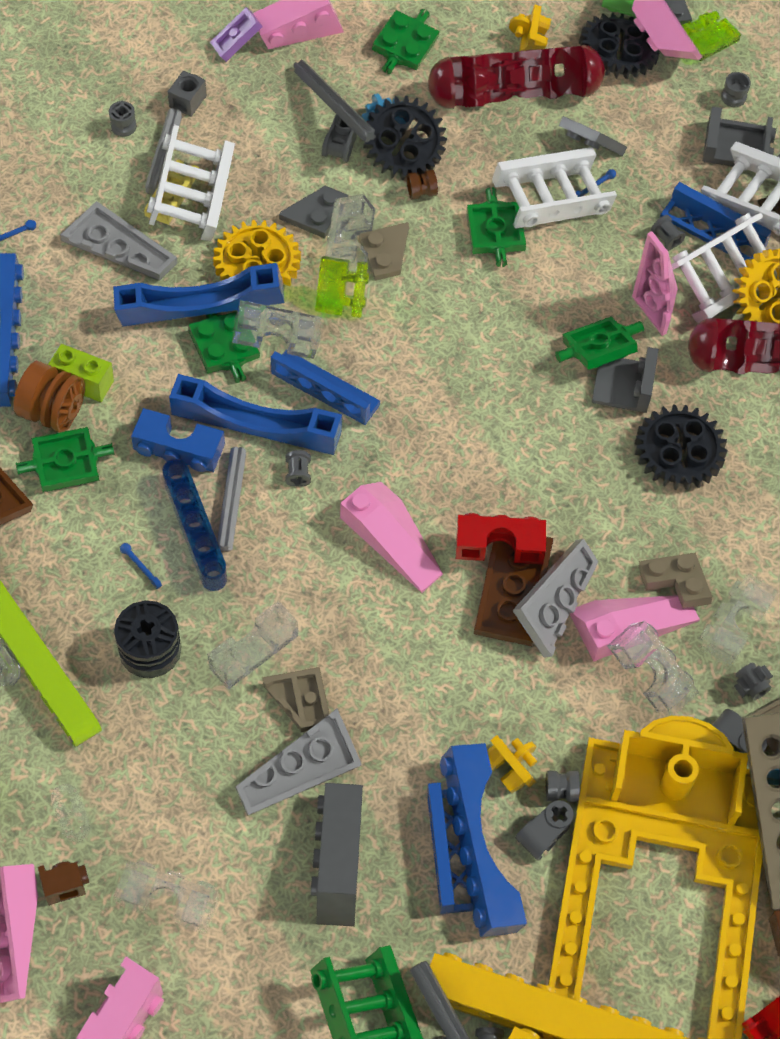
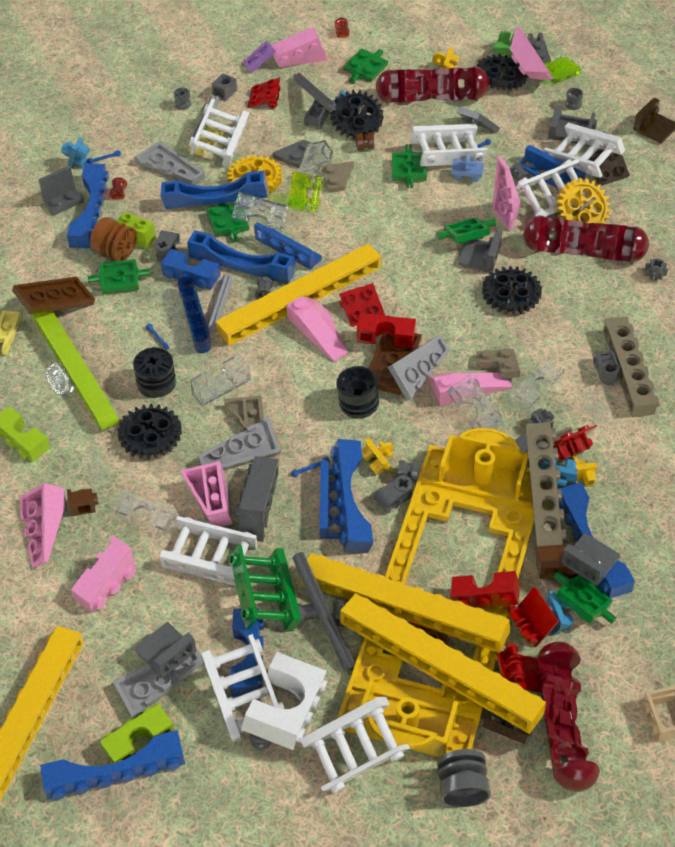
camera: 10 degrees right, 10 degrees down
(42, 294) = (118, 188): none -> clear red bush
(133, 397) = (165, 242): none -> dark grey piece
(139, 767) = (149, 431): none -> black gear
(252, 102) = (265, 93): none -> red hinge
(252, 979) = (193, 564): none -> white fence
(265, 852) = (210, 491): none -> bright pink wedge
(370, 463) = (313, 285): none -> yellow brick
(388, 799) = (295, 473): none -> blue hinge
(454, 489) = (360, 300): none -> red hinge
(471, 638) = (358, 392): none -> black wheel
(588, 229) = (467, 168): none -> medium blue hips
(733, 998) = (501, 592): none -> red arch

